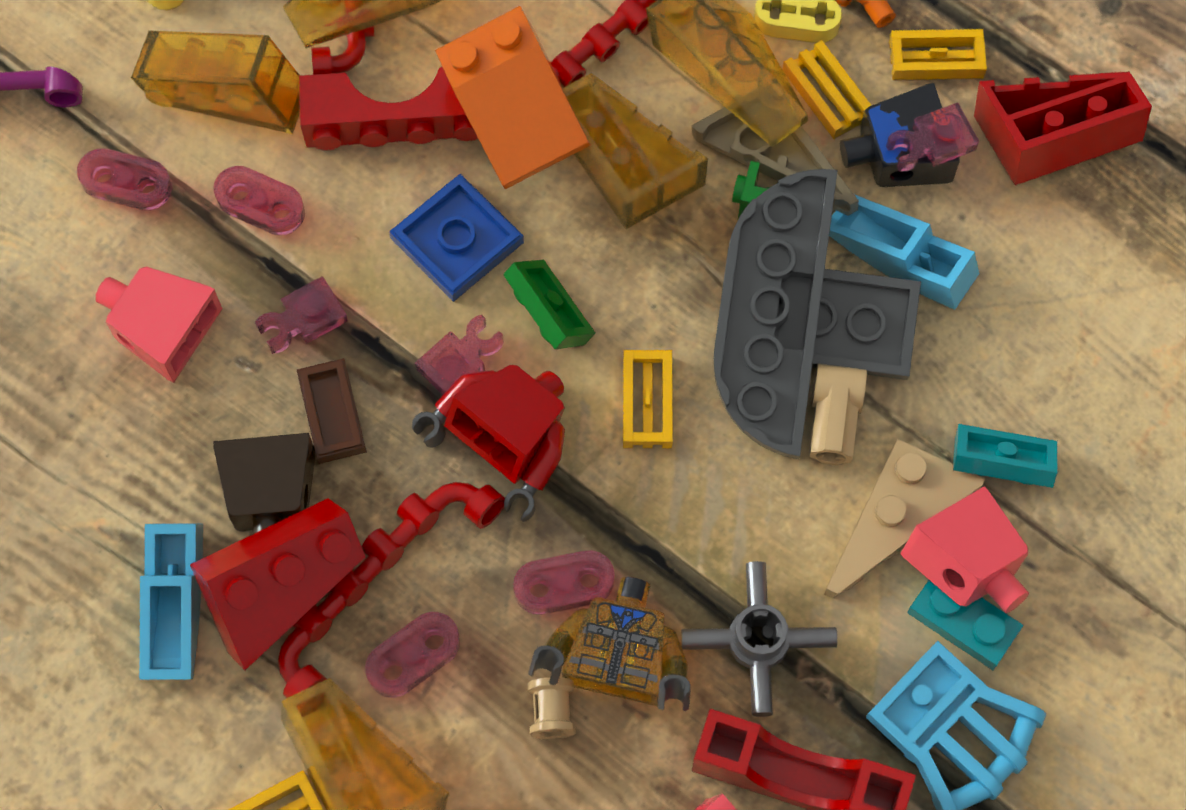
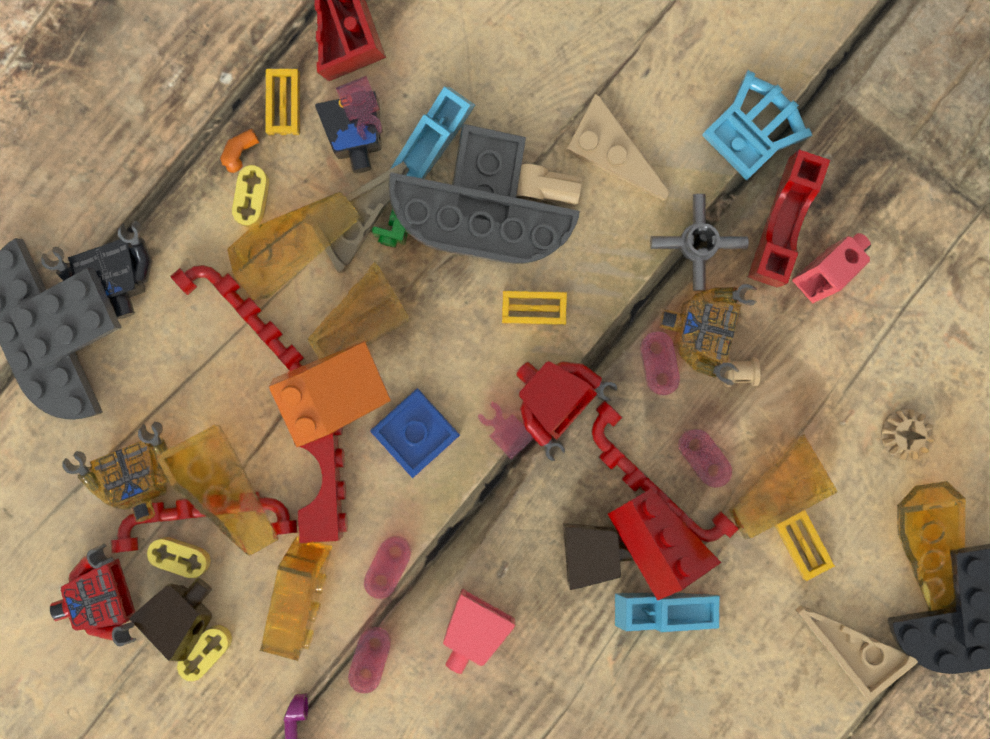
camera: 90 degrees left, 20 degrees up
(308, 311) = (468, 531): clear pink plate -> none
(331, 411) = (538, 513): reddish brown tile -> none
(548, 304) = (469, 371): green plate -> none
(809, 59) = (300, 169): yellow tile -> none
(970, 552) = (650, 105): coral torso -> none
(976, 628) = (684, 114): teal plate -> none
(1005, 455) = (581, 80): teal plate -> none

